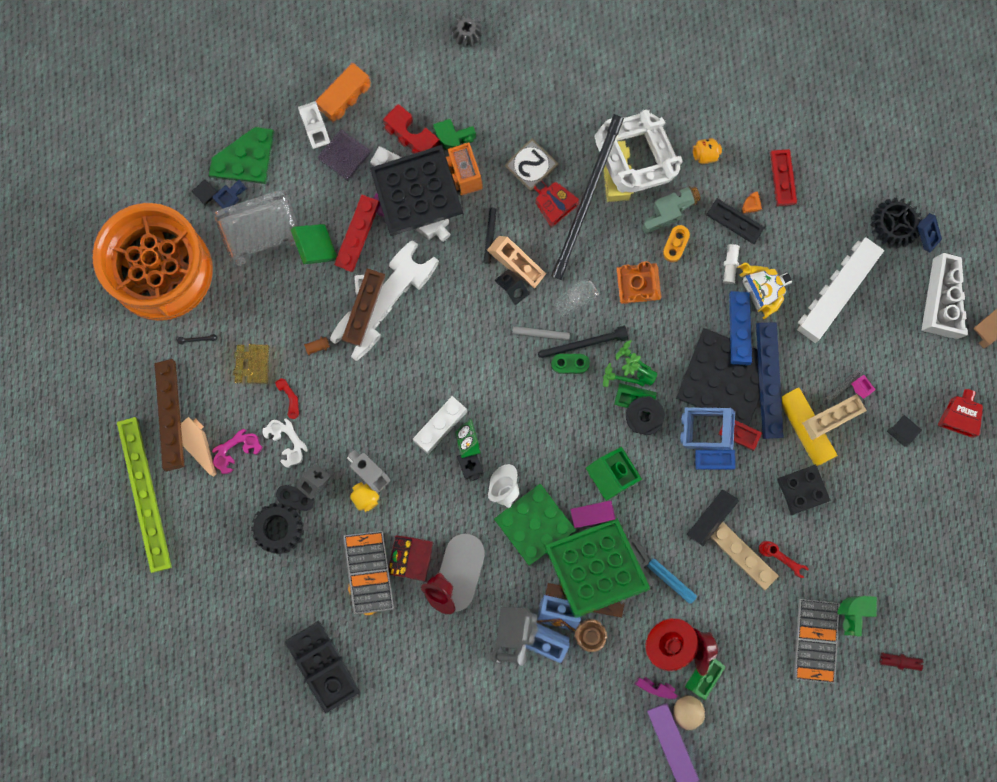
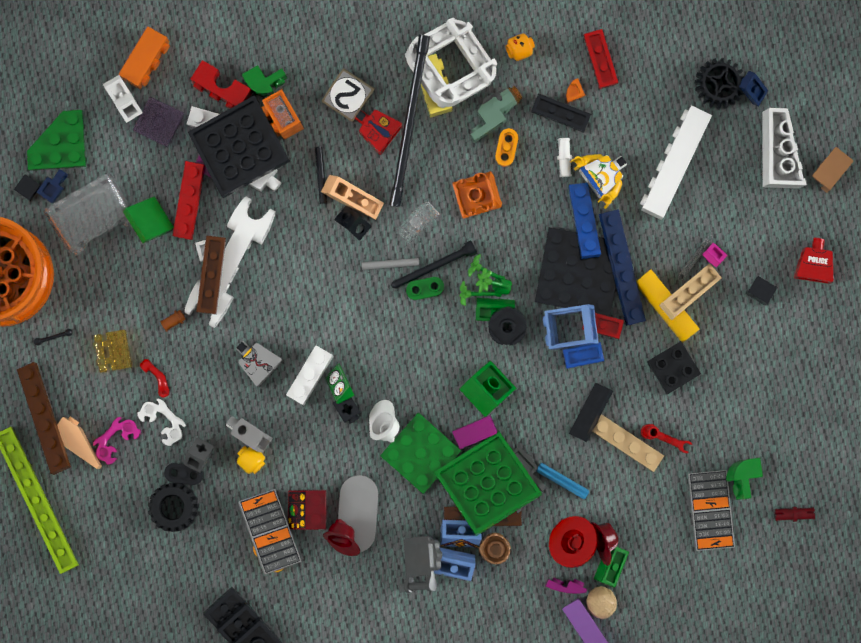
camera: 10 degrees left, 5 degrees up
(391, 402) = (257, 362): none -> light grey torso

